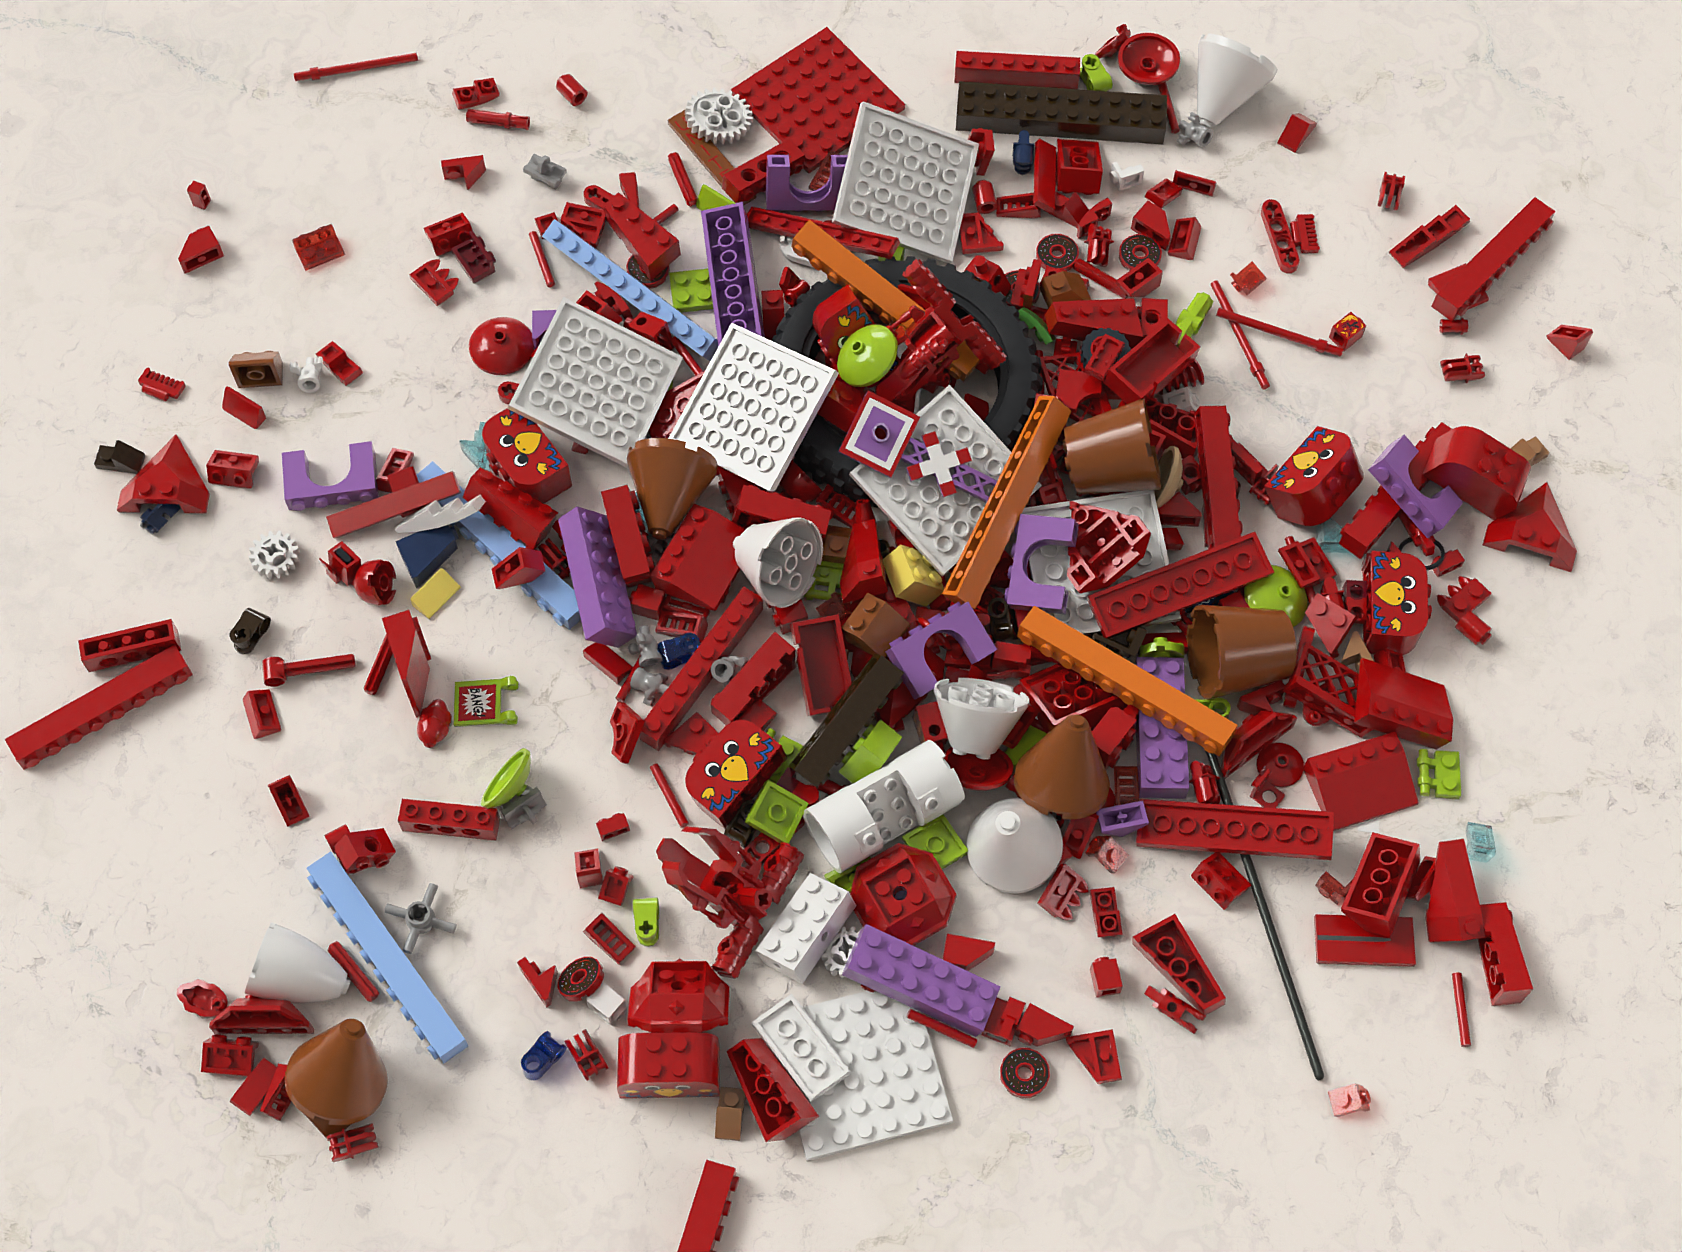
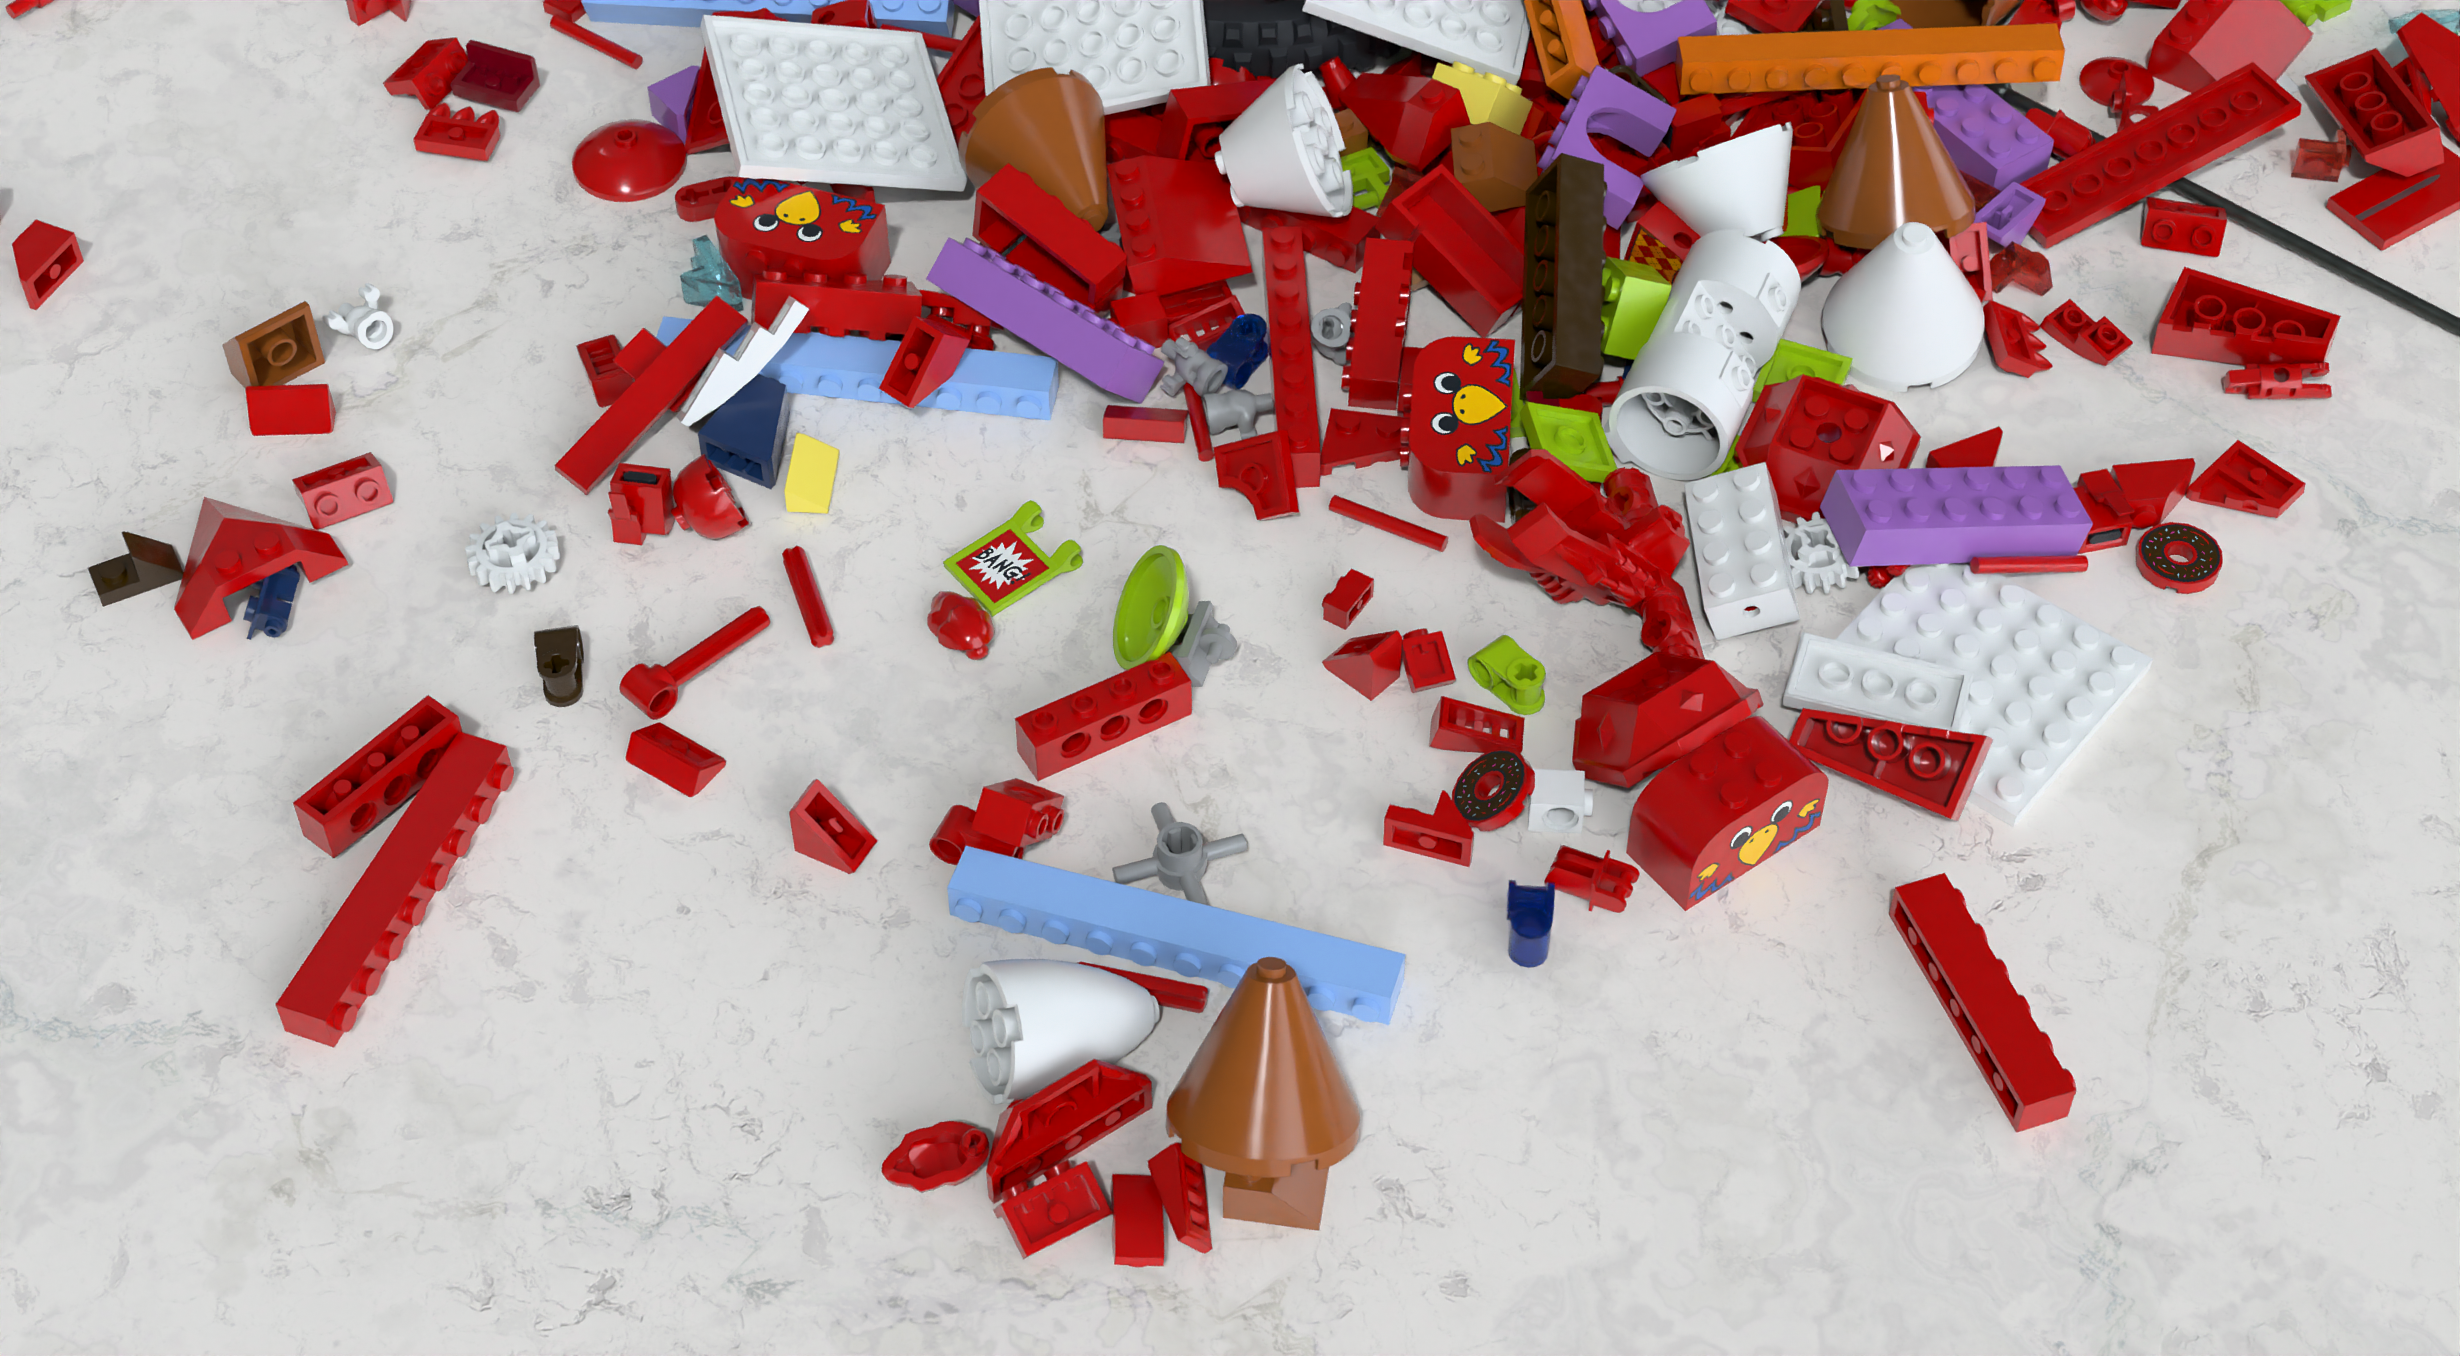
camera: 35 degrees left, 15 degrees down
(157, 388) = (124, 458): red piece -> none
(318, 247) = (233, 177): clear red bracket -> none
(339, 364) = (397, 293): red slope -> none
(356, 1141) = (1359, 1196): red arm -> none
(357, 486) = (490, 457): medium lavender arch -> none
(410, 655) = (867, 535): red slope -> none
(729, 1113) = (1861, 831): medium nougat slope -> none
(1106, 977) = (2165, 395): red brick -> none
(1253, 737) = (2075, 30): red wedge -> none

